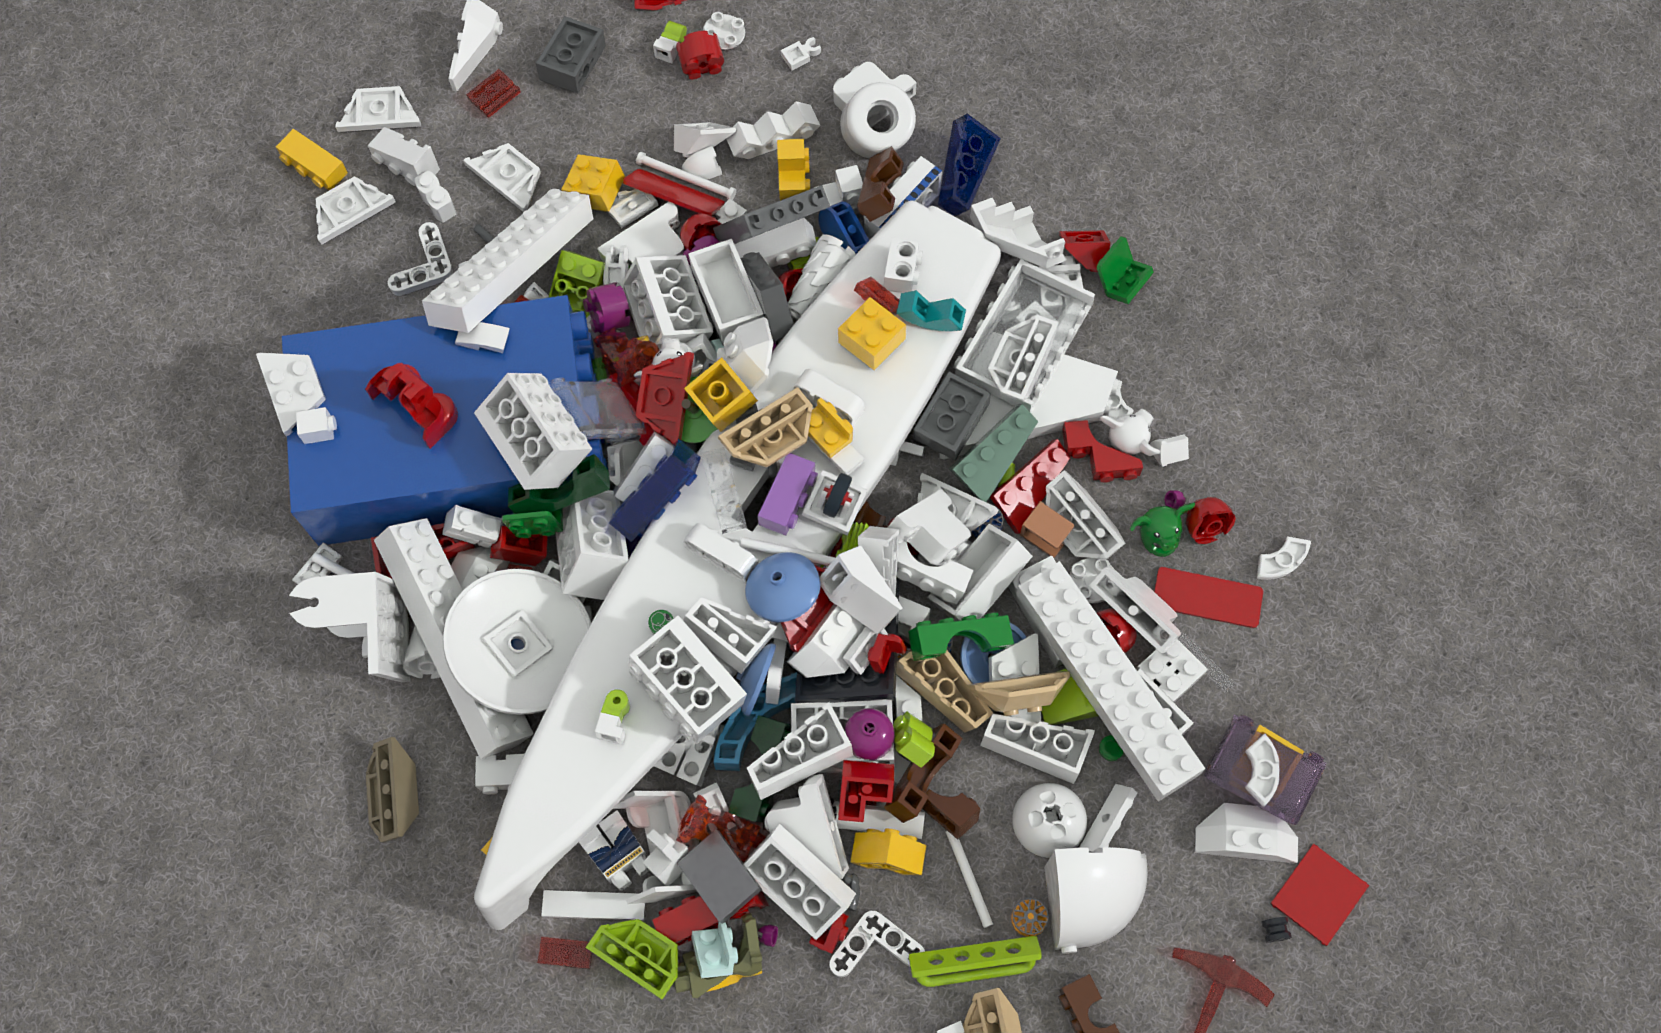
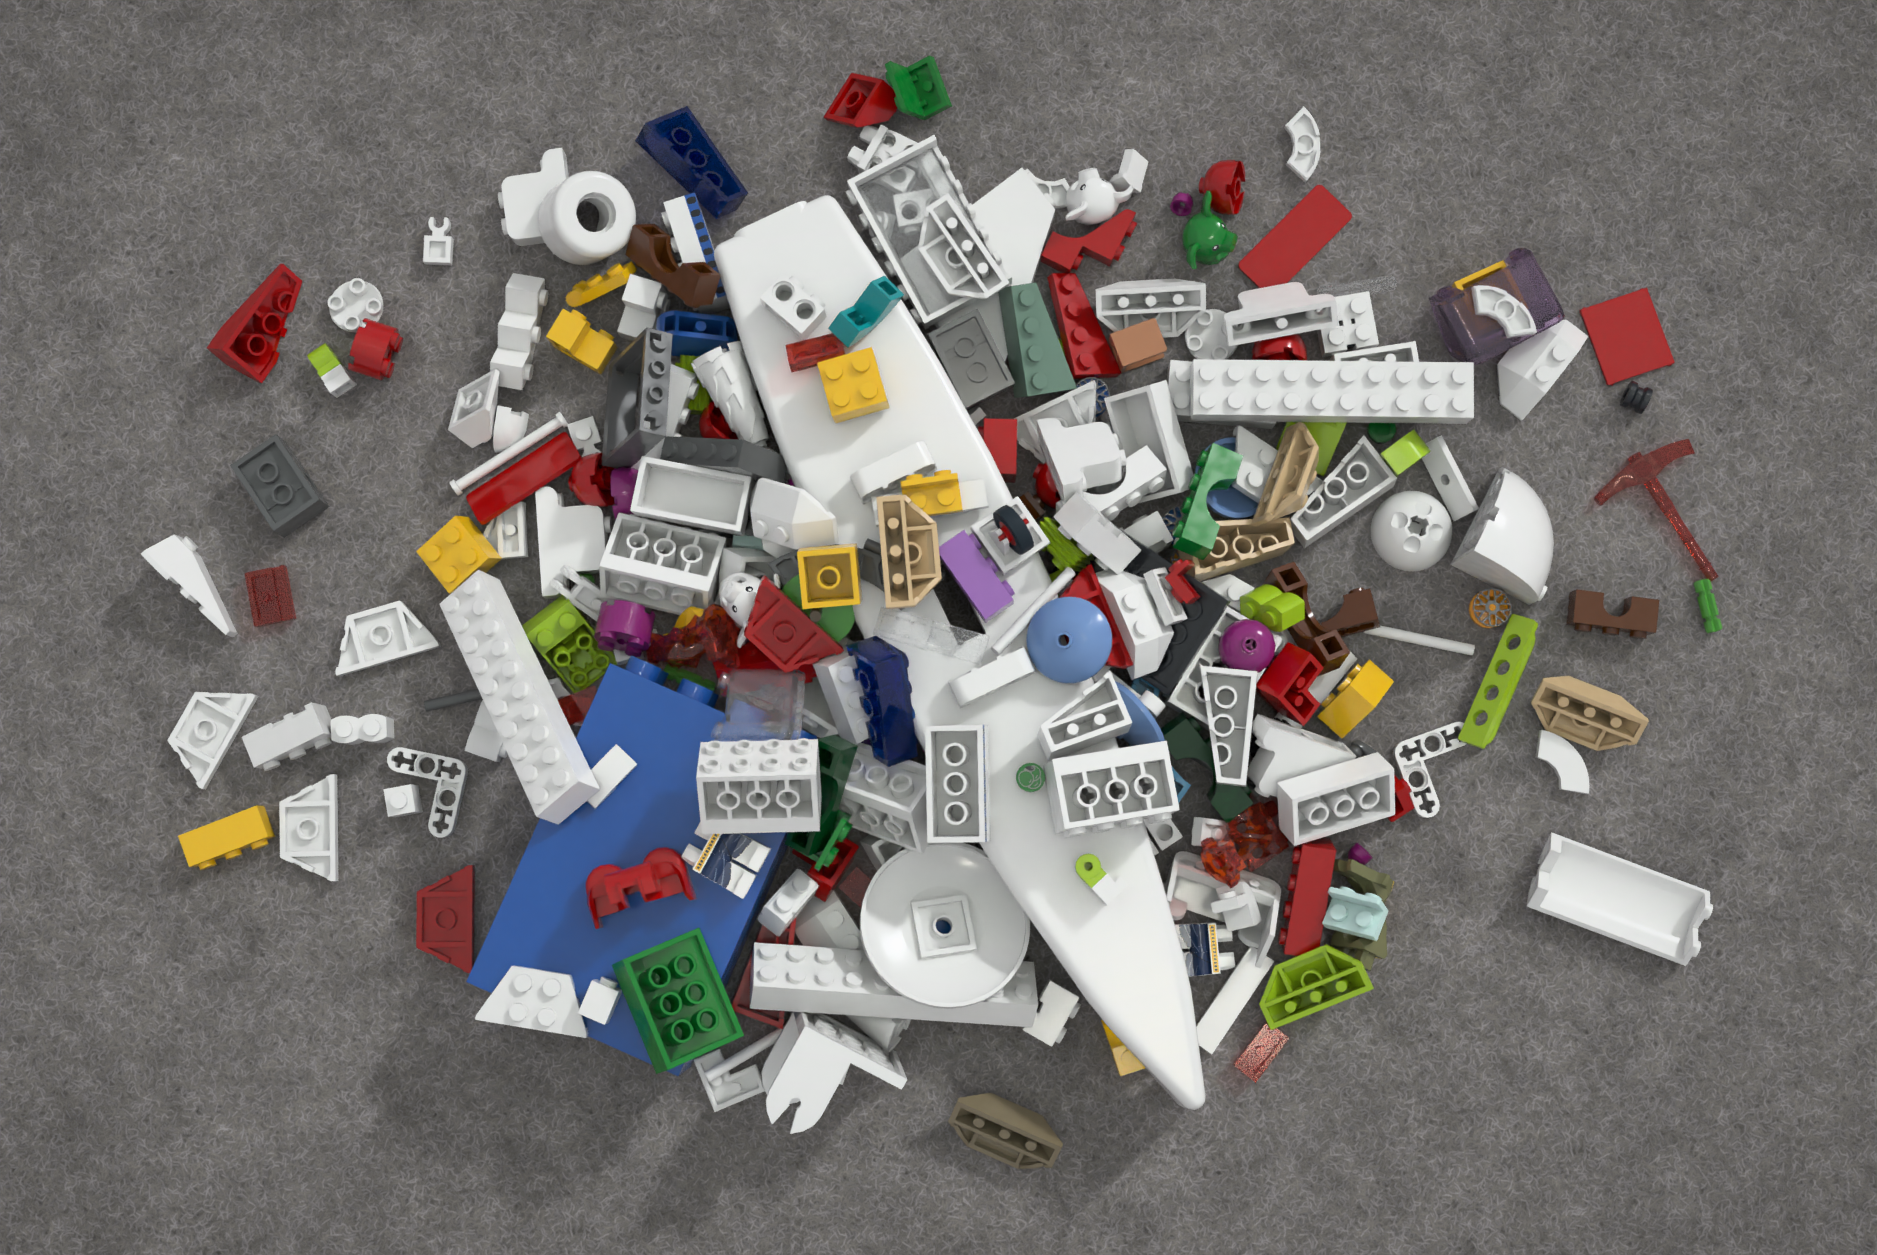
camera: 55 degrees left, 15 degrees up
(336, 314) = (447, 919): none -> red wing
(346, 476) = (677, 1000): none -> green slope
(400, 248) = (403, 800): none -> white brick
(469, 450) = (717, 857): none -> hips
(623, 571) = (957, 783): none -> white brick
(719, 876) = (1290, 868): flat silver tile -> none
(838, 157) = (599, 285): none -> yellow hinge
(860, 589) = (1120, 568): white slope -> none
(902, 476) = (1001, 440): none -> red brick
(1015, 233) = (813, 168): white panel -> none
(1102, 769) = (1405, 453): none -> lime brick

